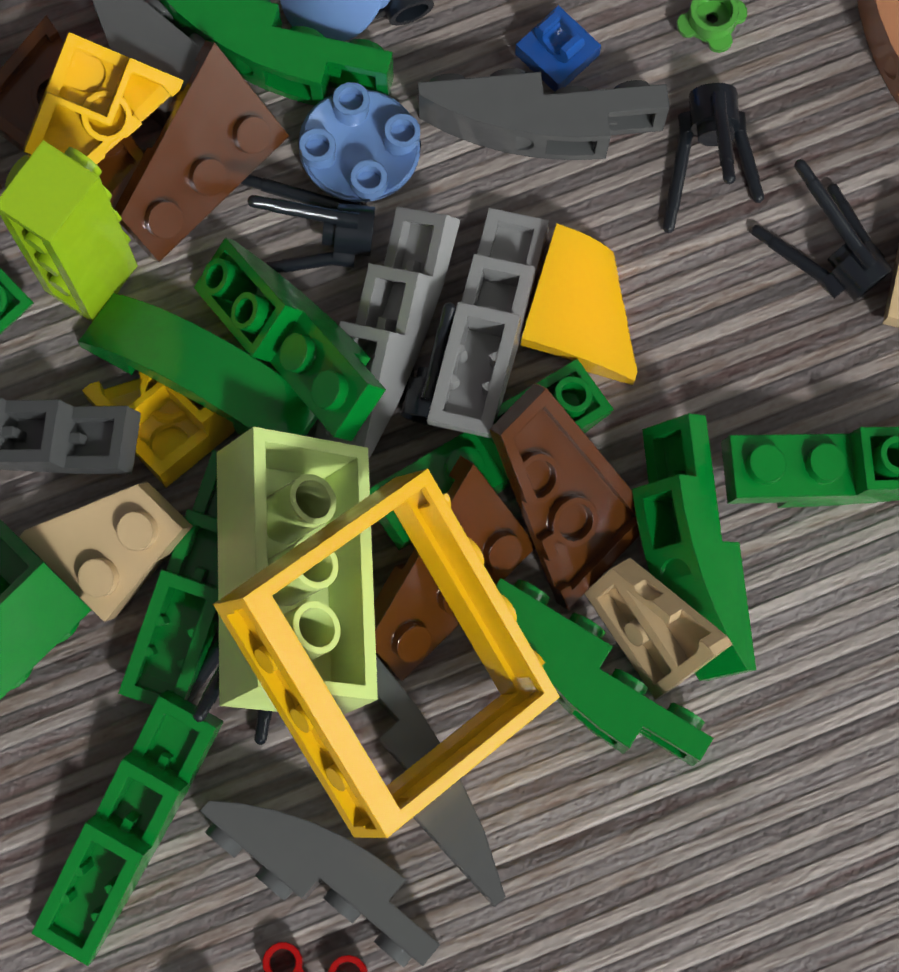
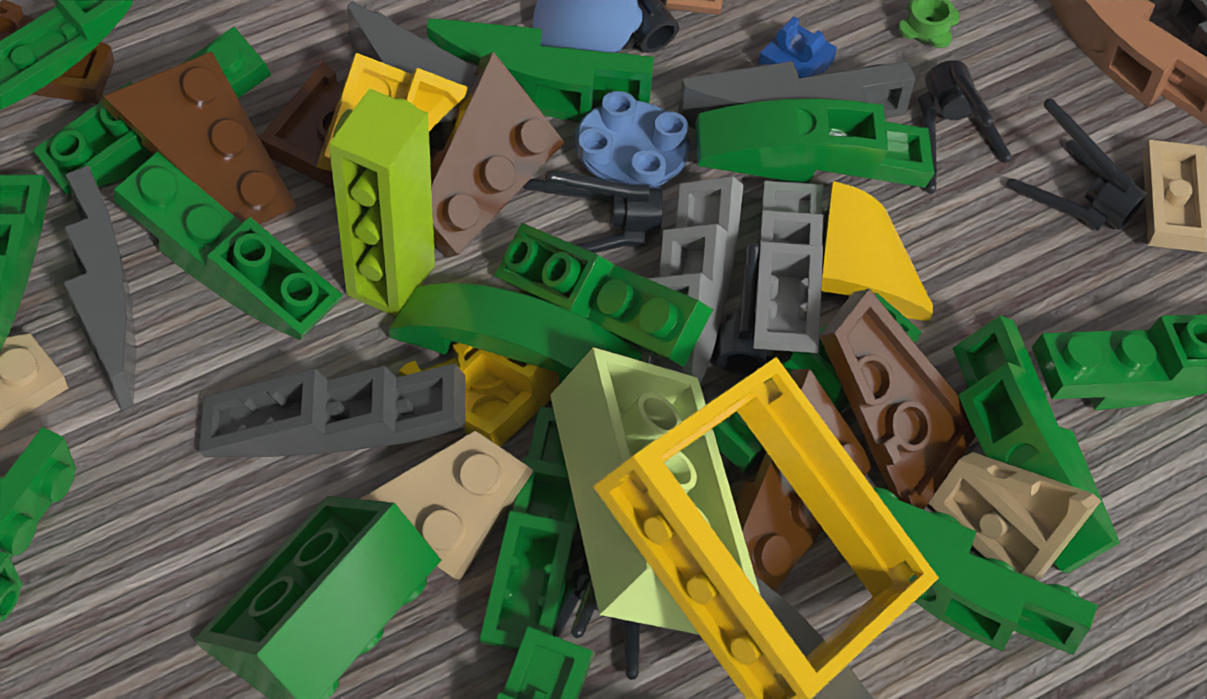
camera: 10 degrees left, 20 degrees down
(550, 167) = (806, 135): none -> green slope

